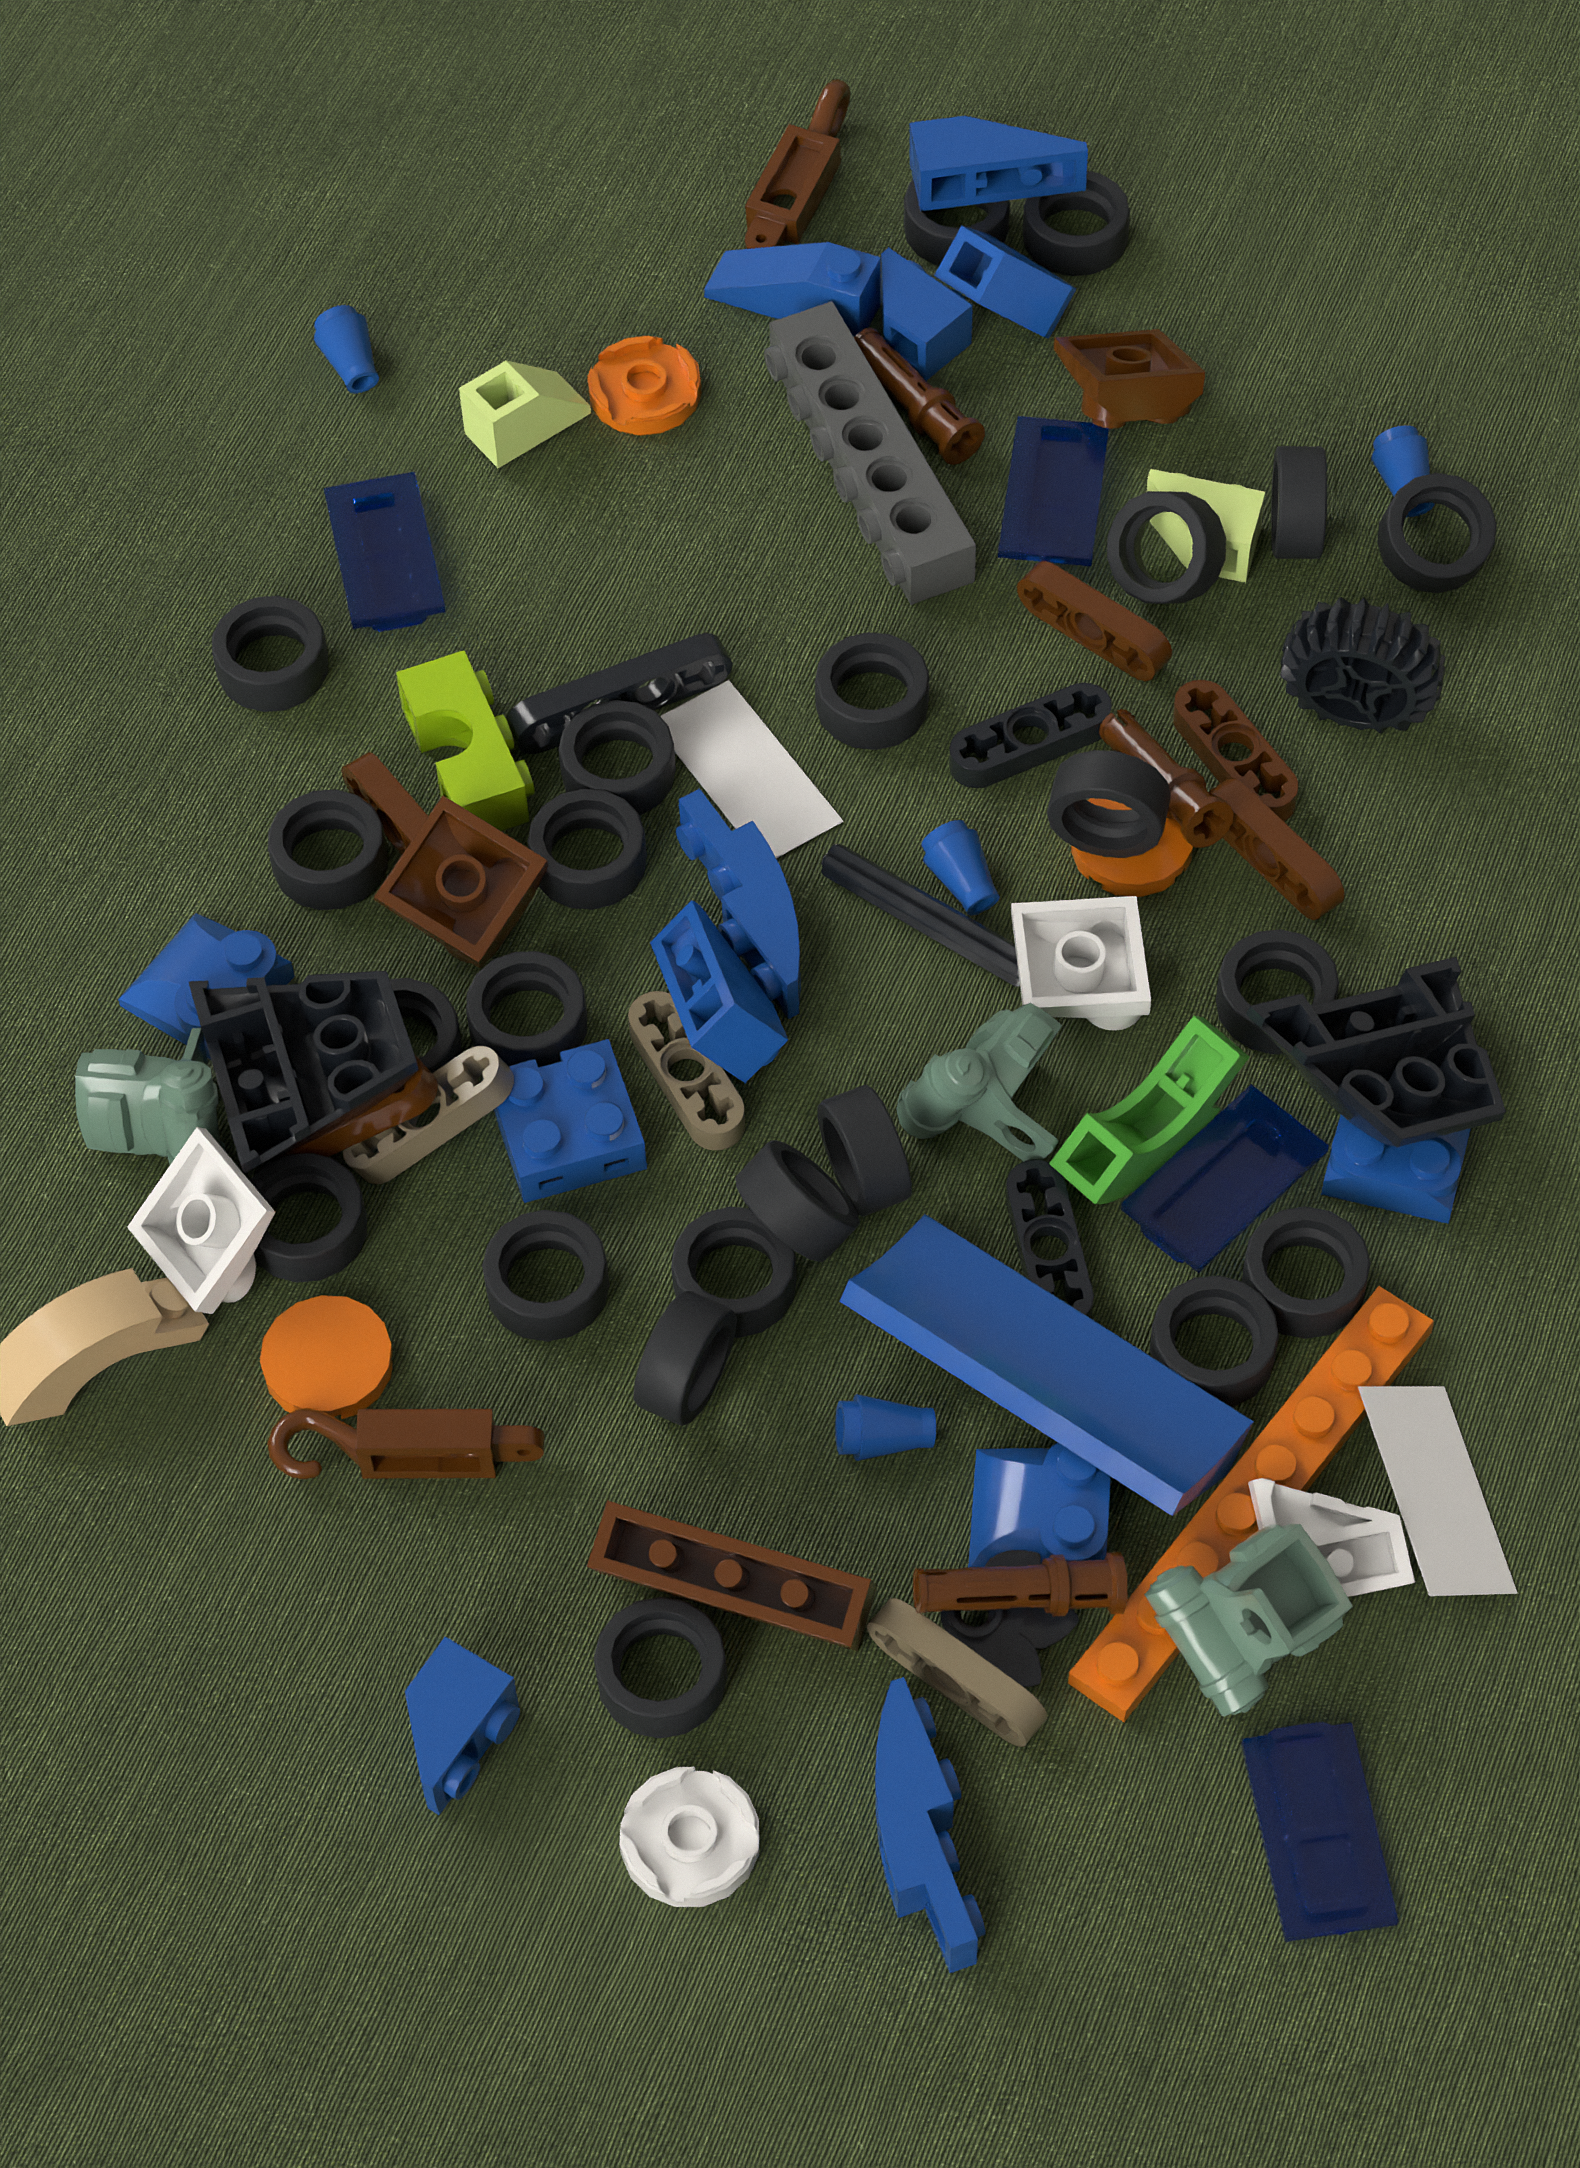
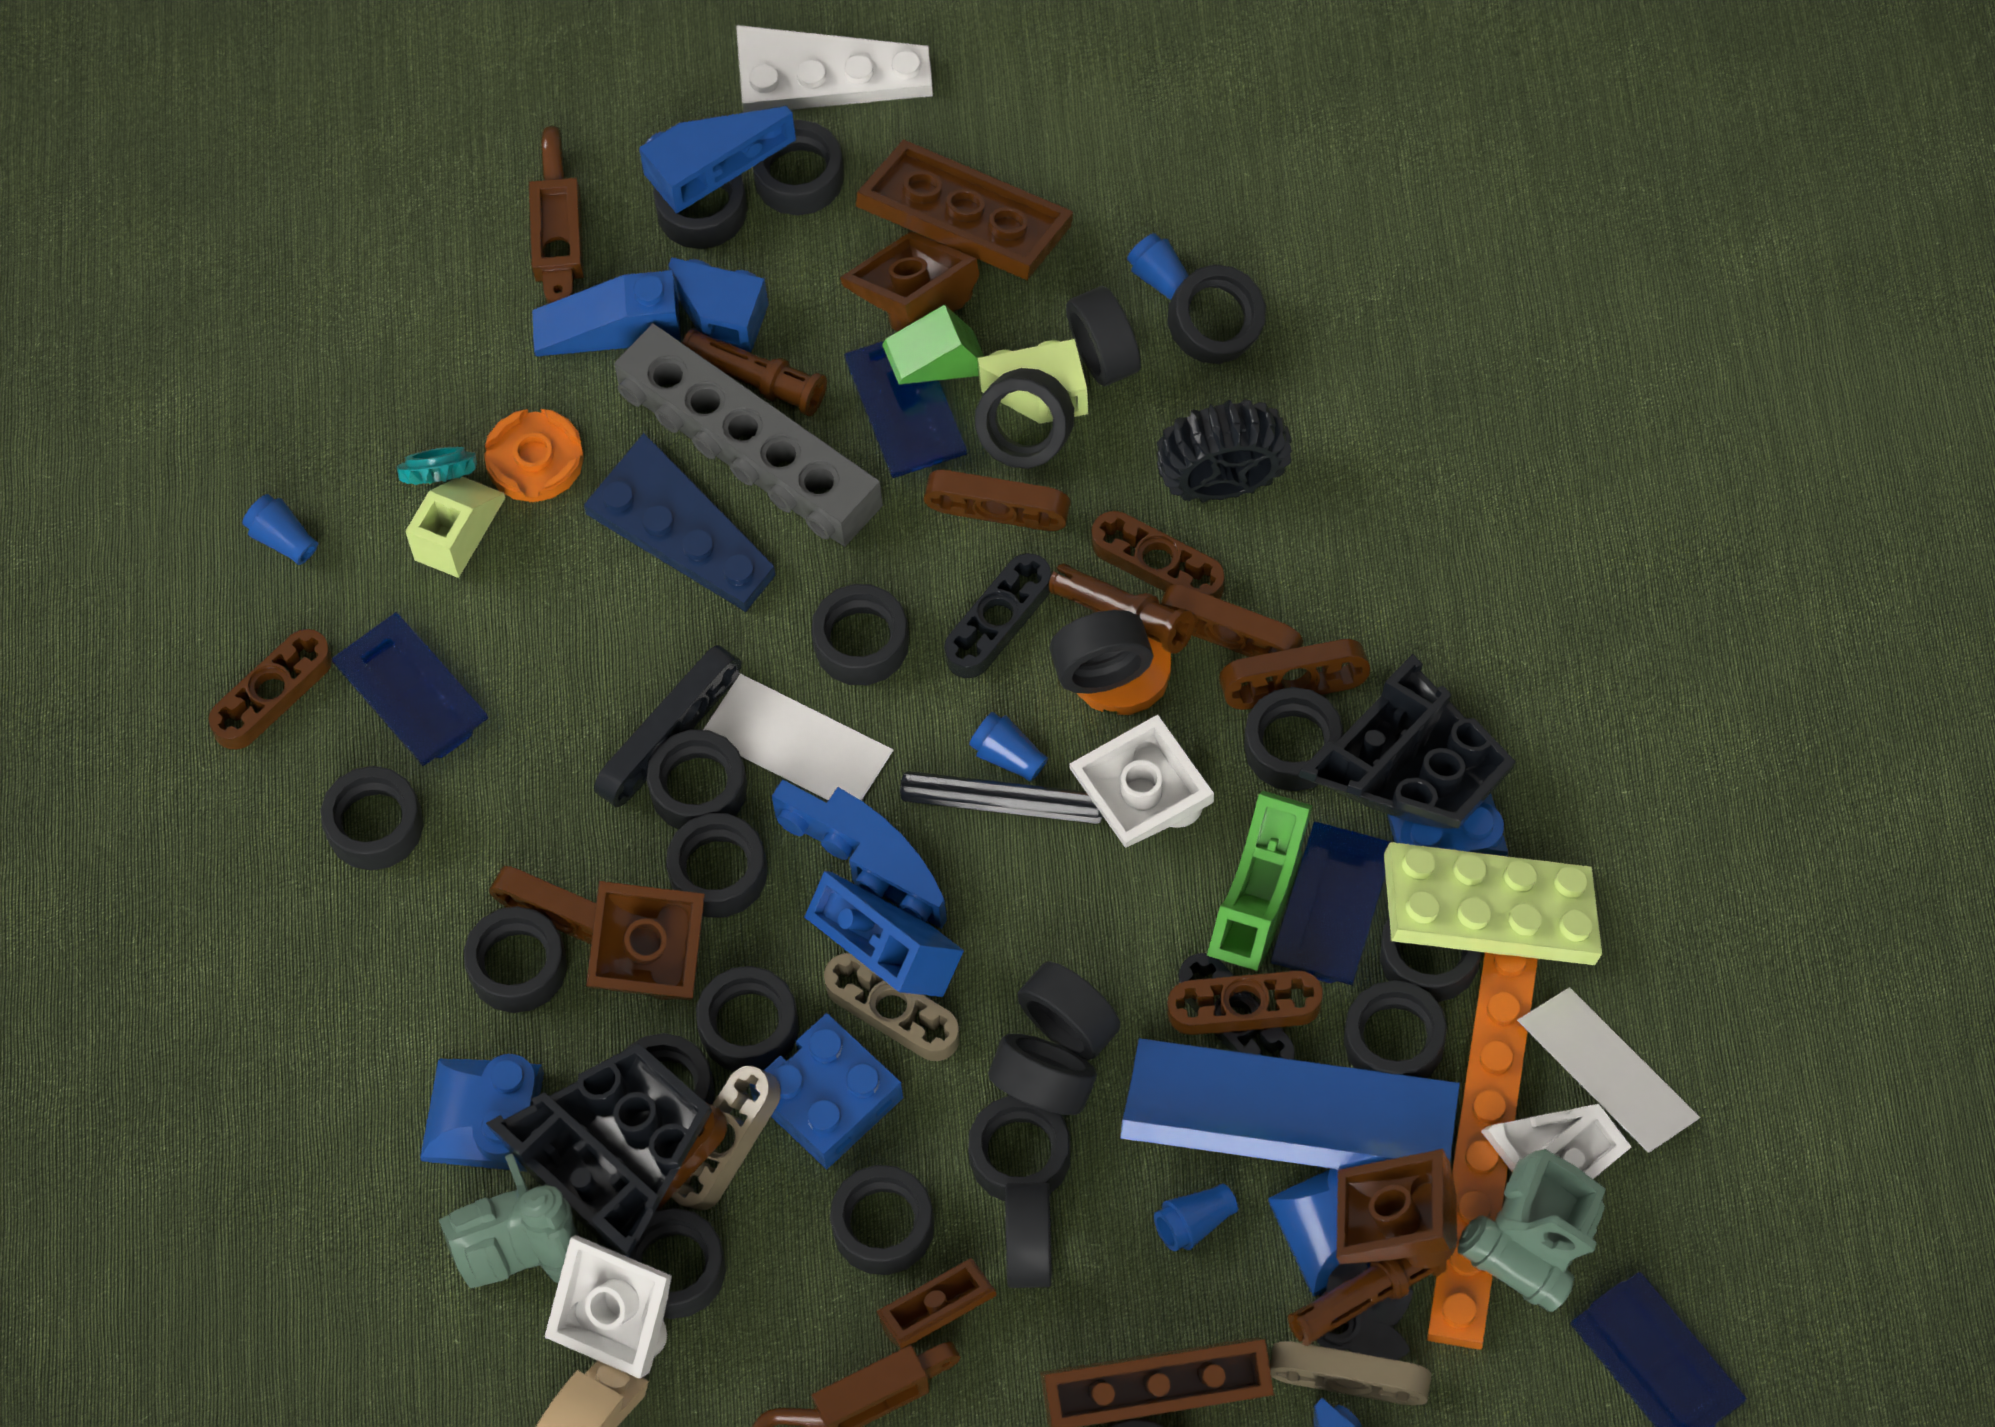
camera: 25 degrees left, 5 degrees up
(236, 513) = (269, 710): none -> reddish brown beam
(327, 1356) = (752, 1363): orange tile -> none
(451, 707) = (544, 796): lime arch -> none
(536, 349) = (436, 465): none -> teal gear
(547, 1381) = (935, 1304): none -> reddish brown slope
(750, 510) = (674, 521): none -> dark blue wing
(980, 1081) = (1129, 914): sand green piece -> none
(1005, 281) = (775, 245): blue slope -> none
(1074, 1255) = (1258, 984): none -> reddish brown beam
(1098, 1513) = (1398, 1211): none -> reddish brown slope
(1112, 444) = (934, 349): none -> slope
(1166, 147) = (826, 70): none -> white wing
(1226, 327) = (964, 209): none -> reddish brown plate
(1338, 912) = (1327, 654): none -> reddish brown beam
(1398, 1251) = (1492, 904): none -> yellowish green plate

